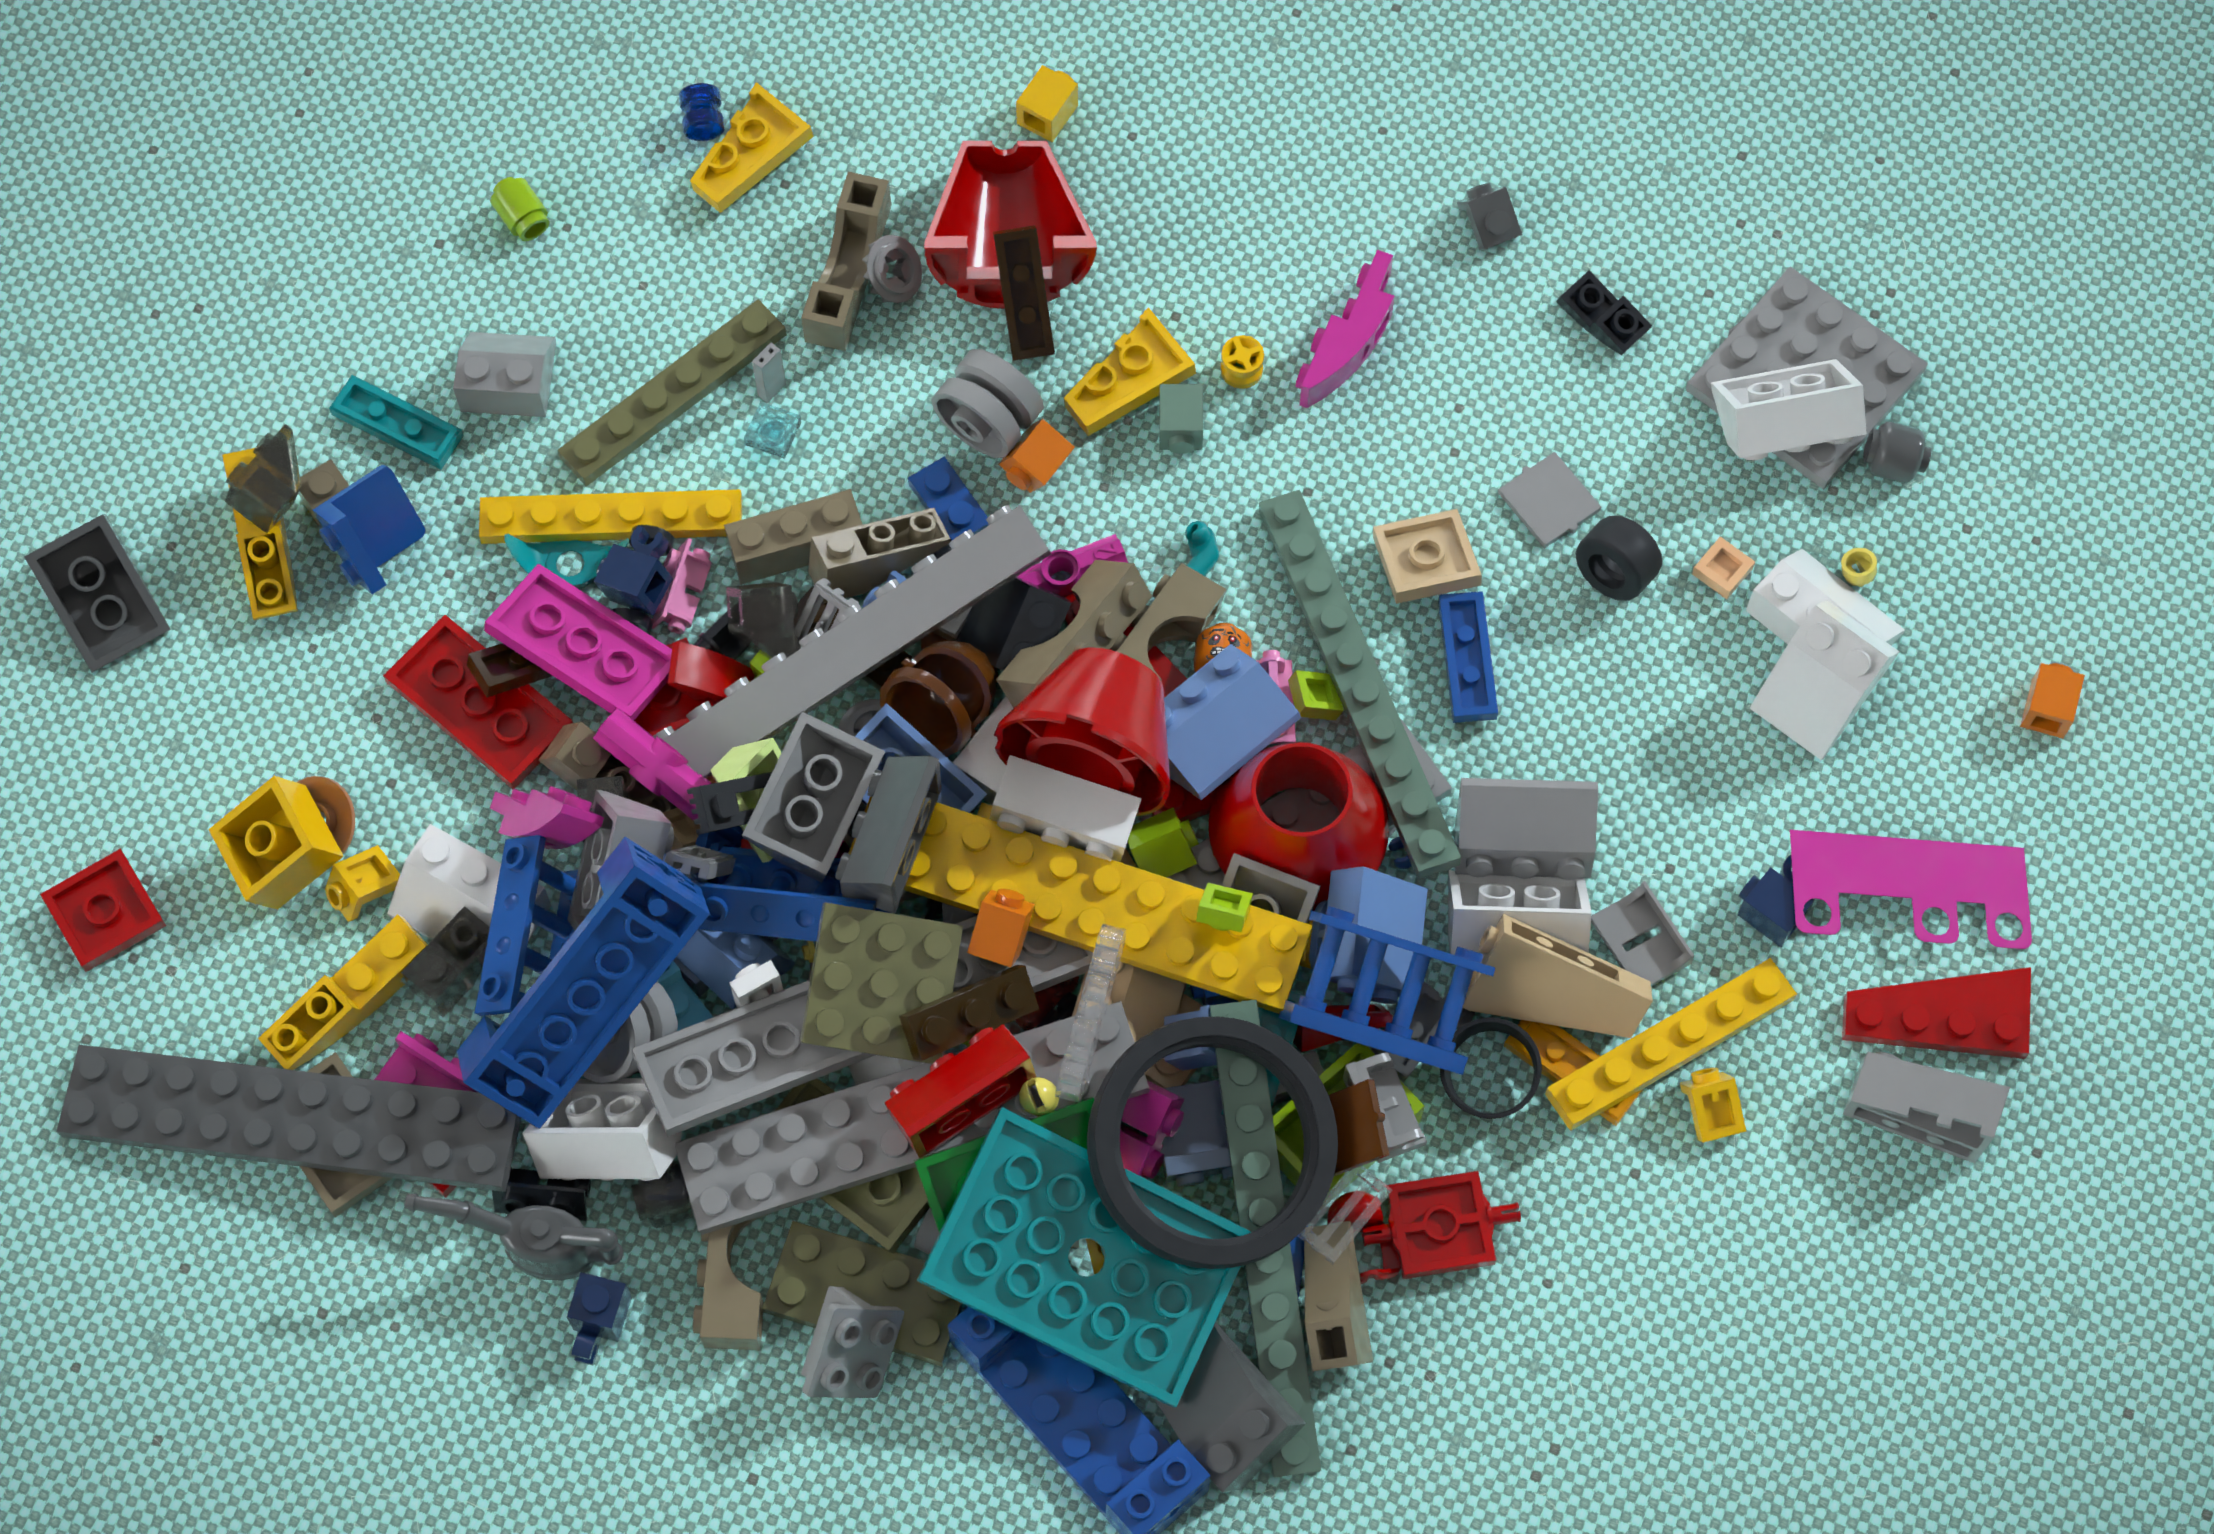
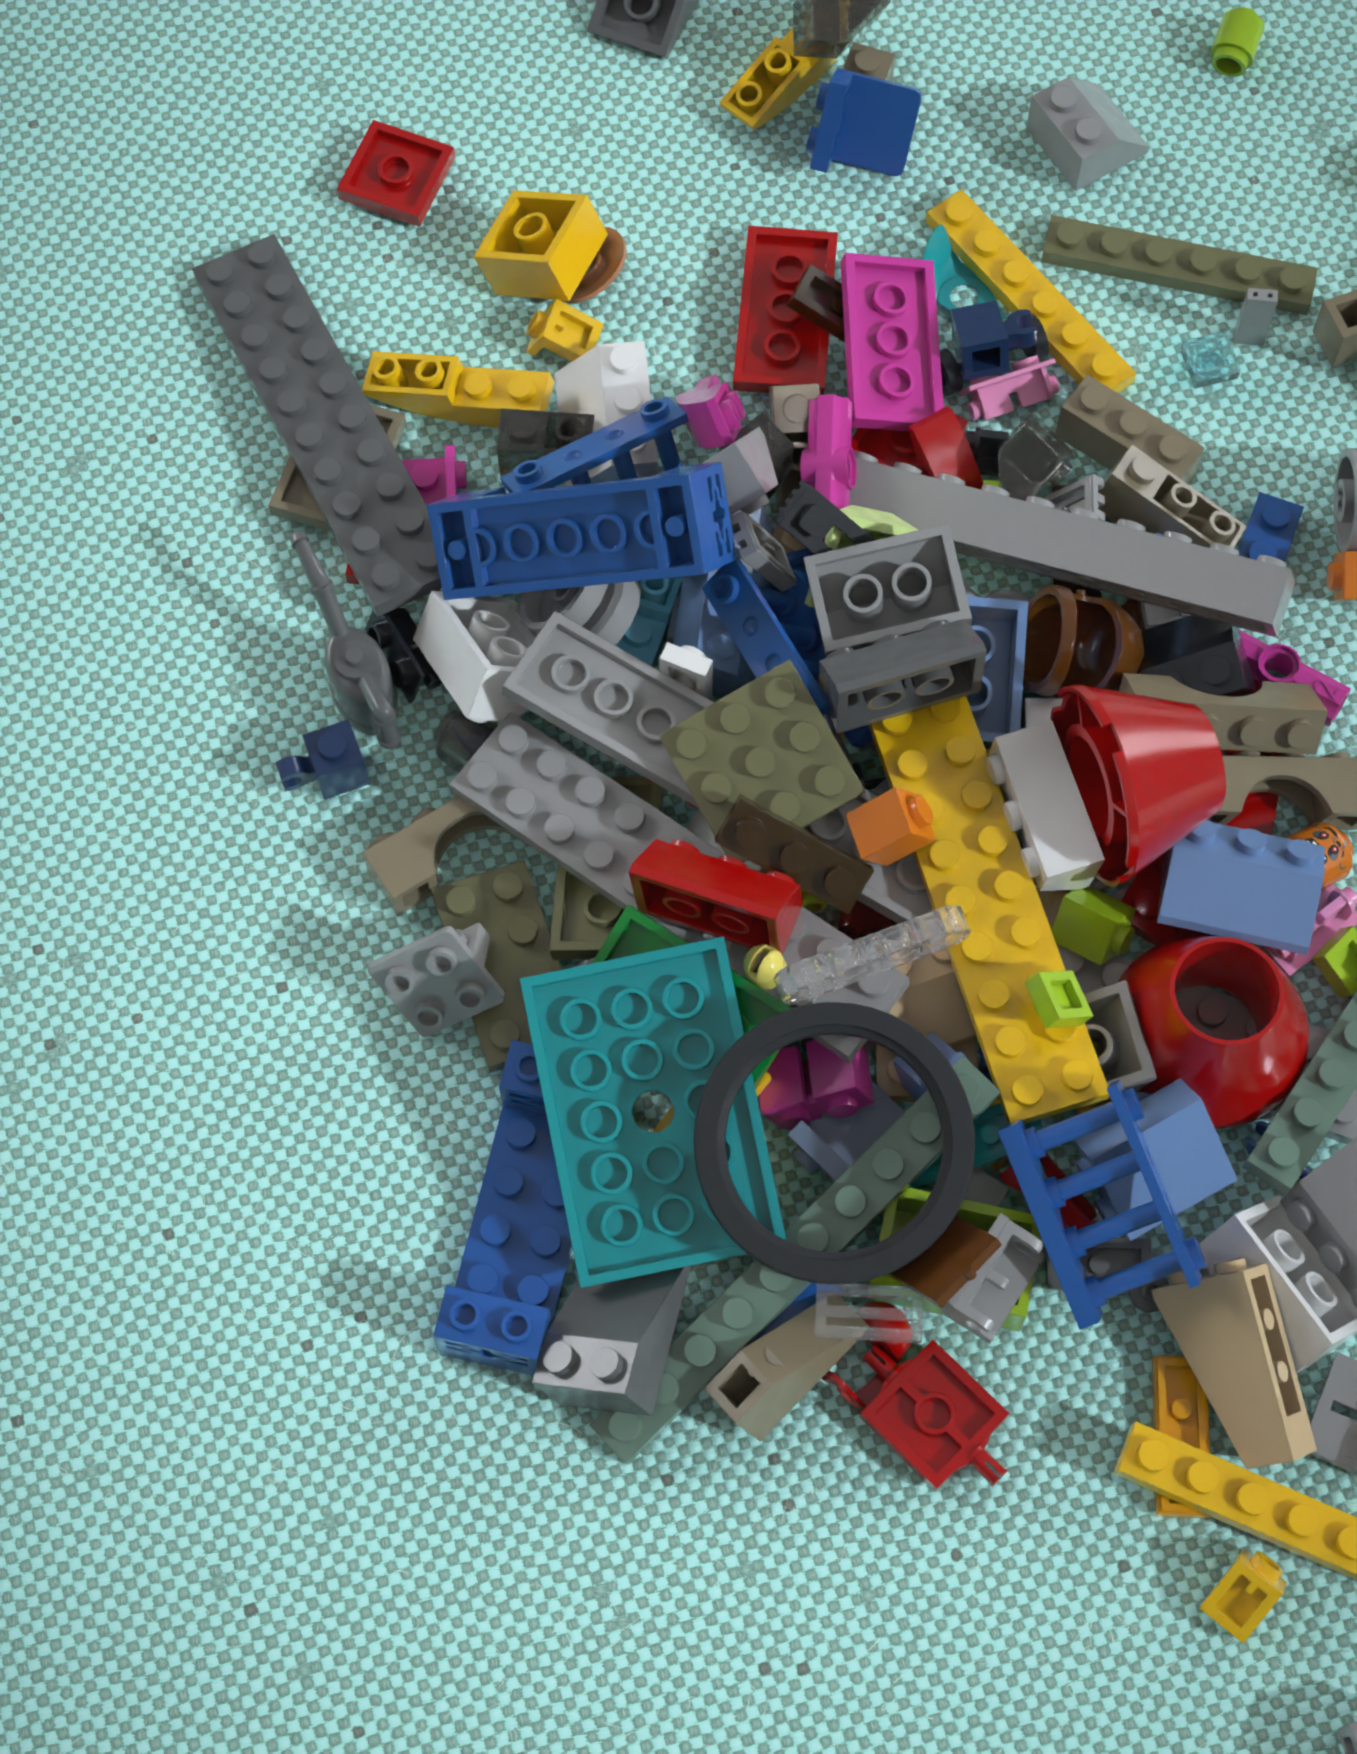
camera: 55 degrees right, 0 degrees up
(396, 422) = (975, 88): teal tile -> none
(1500, 1025) = (1114, 1309): black tyre -> none

